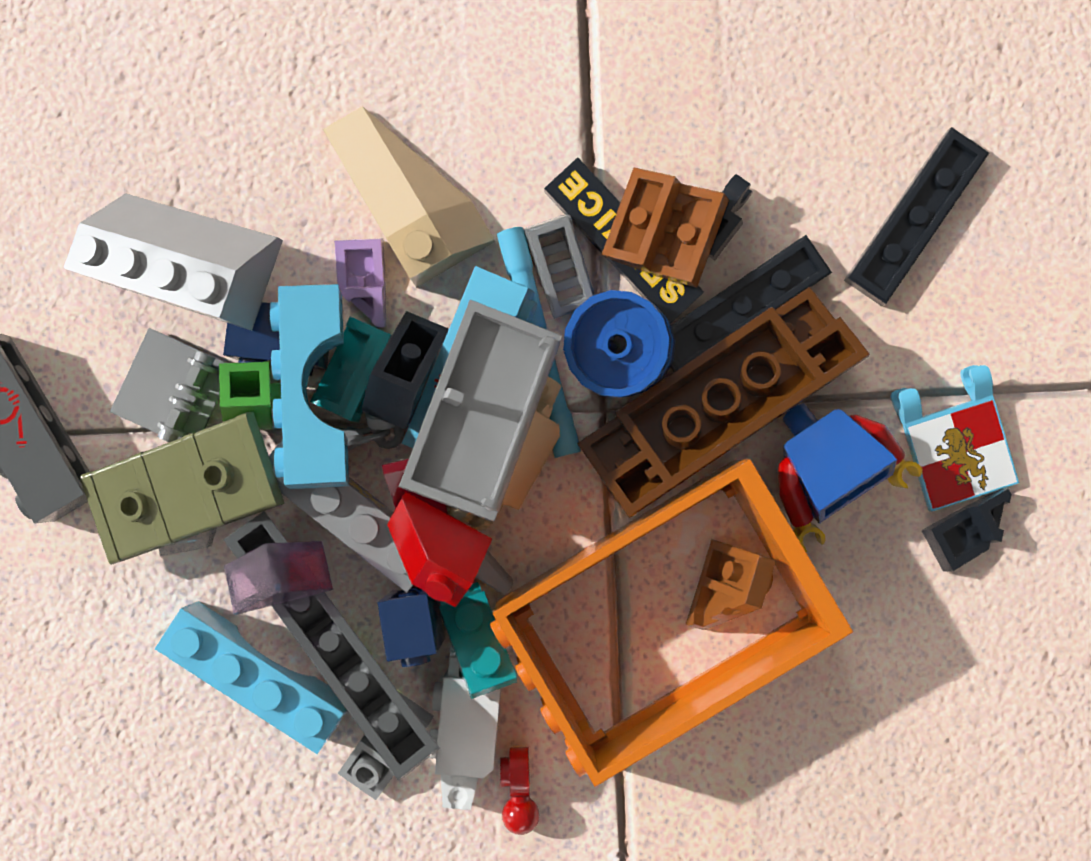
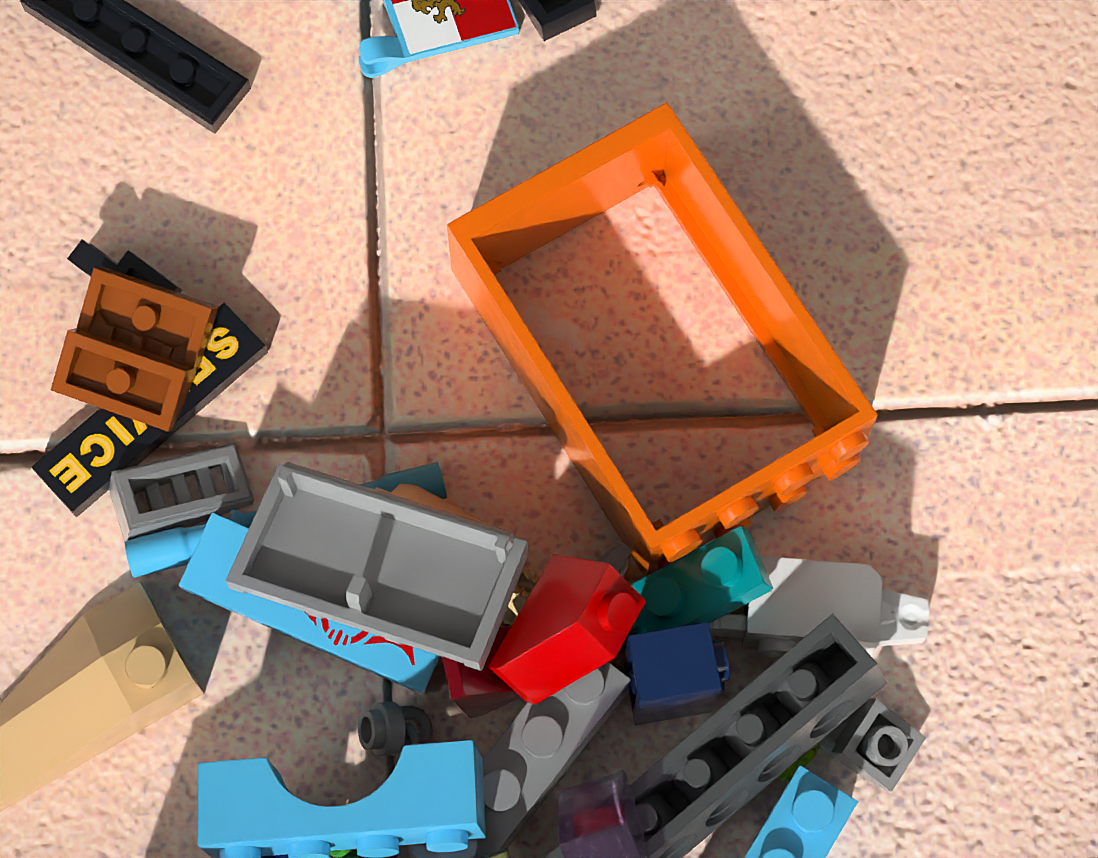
camera: 90 degrees left, 15 degrees down
(349, 370) = (317, 765): teal hinge -> none
(362, 276) = (167, 765): lavender slope -> none
(403, 370) = (321, 684): black brick -> none
(520, 812) = (878, 540): red plate -> none
(591, 347) = (292, 362): blue wheel -> none
(720, 400) = (374, 280): reddish brown slope -> none
(729, 585) = (615, 264): dark orange wing -> none
(764, 287) = (246, 259): black tile -> none
(834, 464) = (454, 136): blue torso -> none

